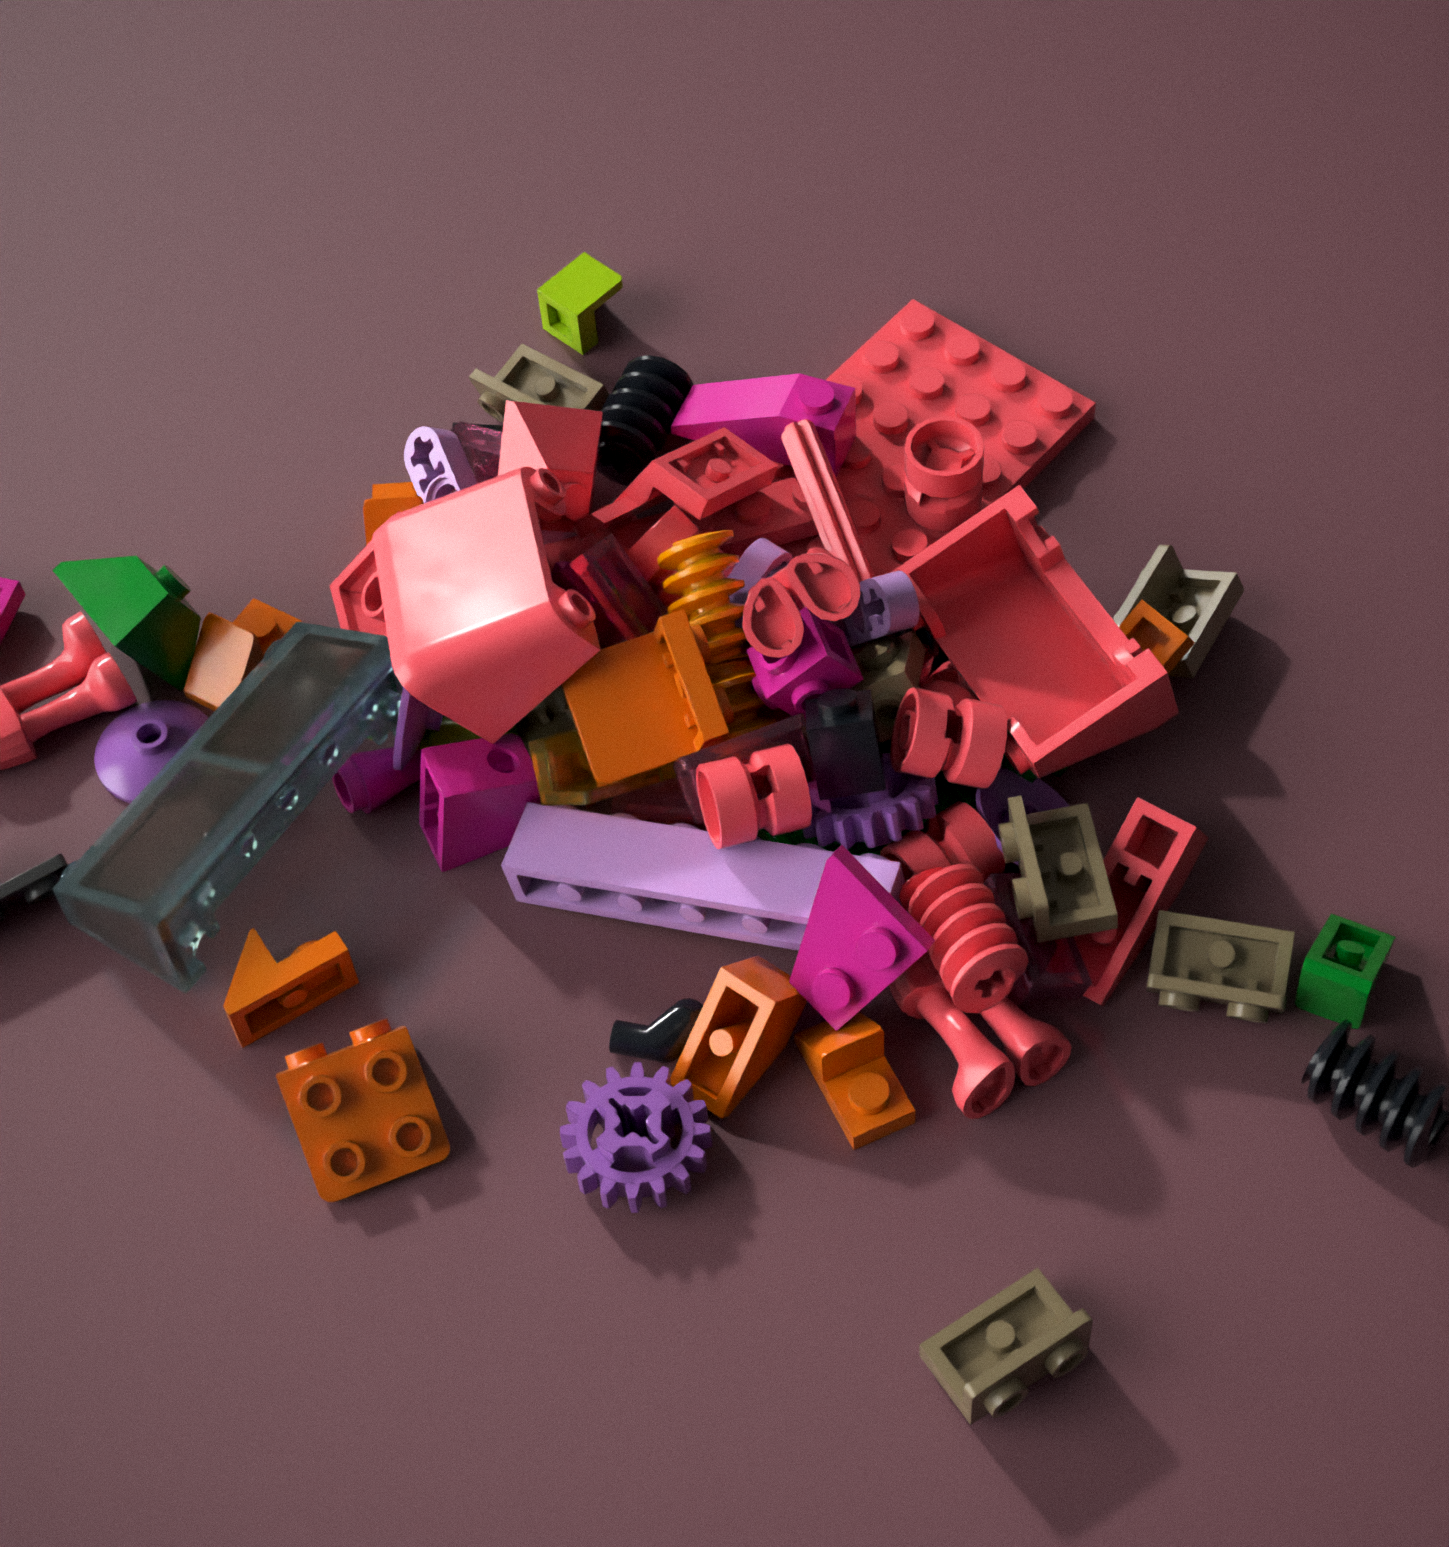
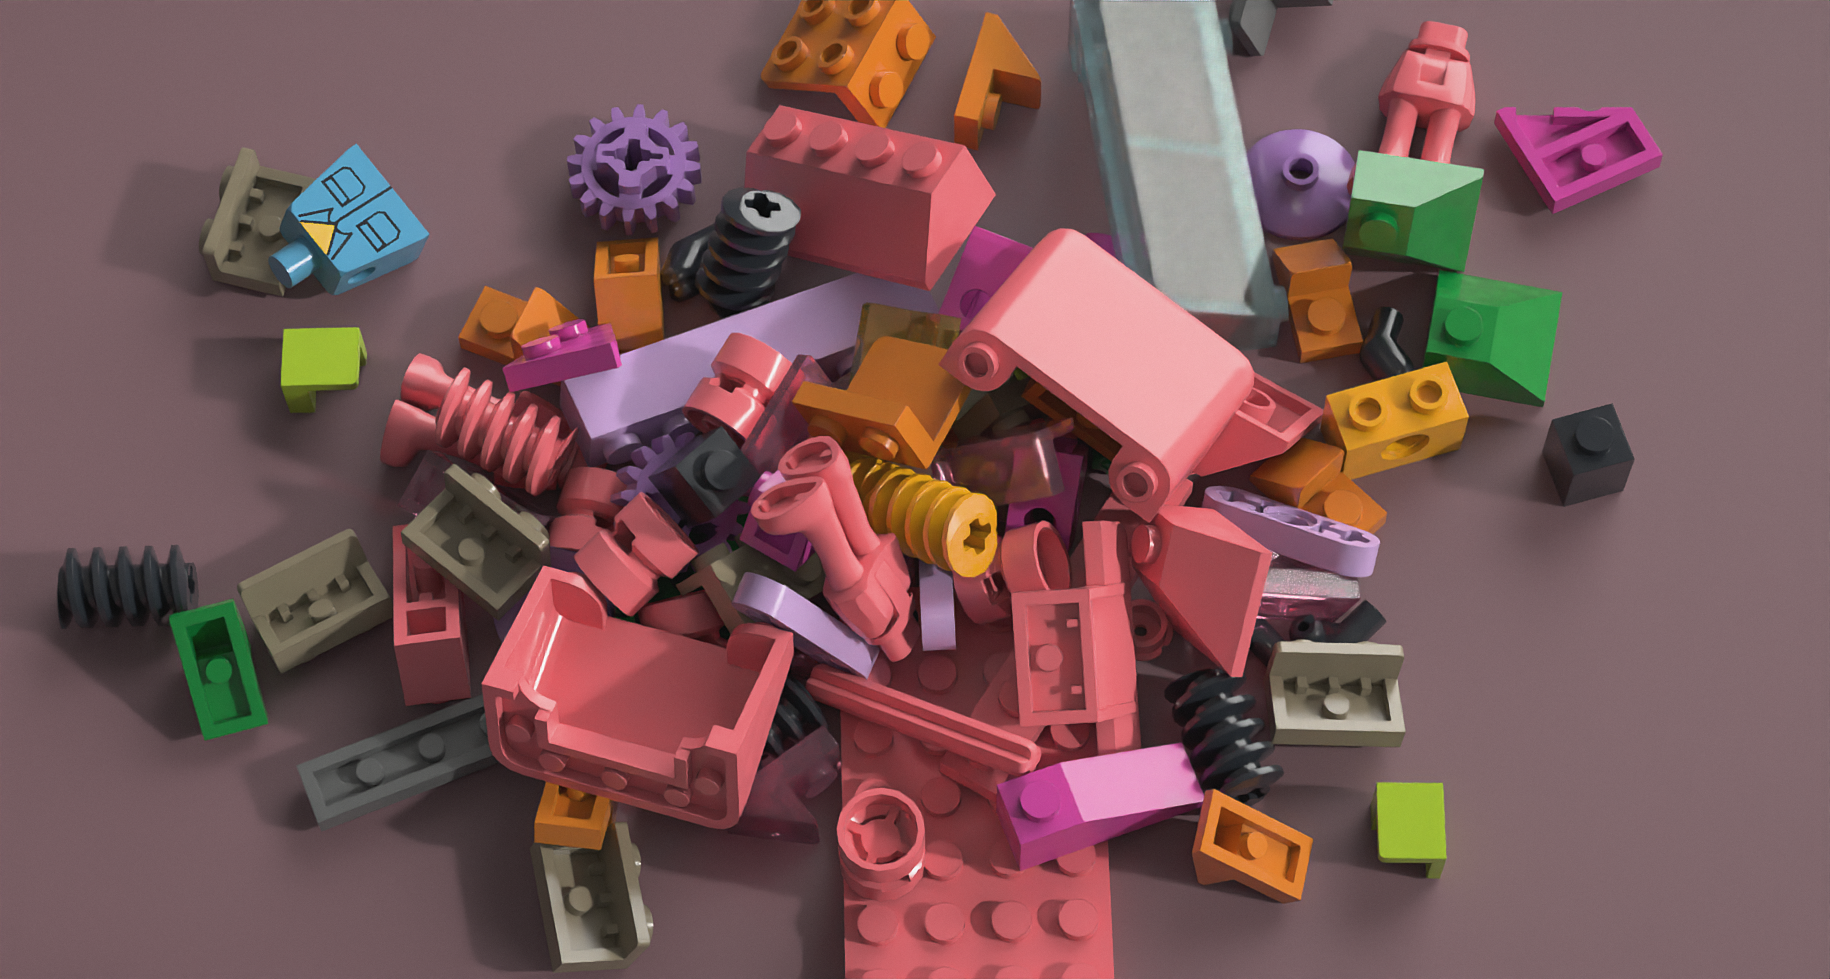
camera: 135 degrees right, 10 degrees up
(185, 533) = (1493, 336): none -> green slope
(209, 417) = (1588, 455): none -> black brick
(252, 579) = (1380, 351): none -> black arm
(299, 521) = (1395, 420): none -> light orange brick
(501, 915) = (870, 194): none -> coral slope
(622, 953) = (746, 250): none -> black piece
(703, 349) = (1249, 848): none -> orange slope
(938, 1258) = (347, 228): none -> dark azure torso
(1057, 1162) = (319, 361): none -> lime panel
(1217, 801) = (398, 763): none -> dark grey plate

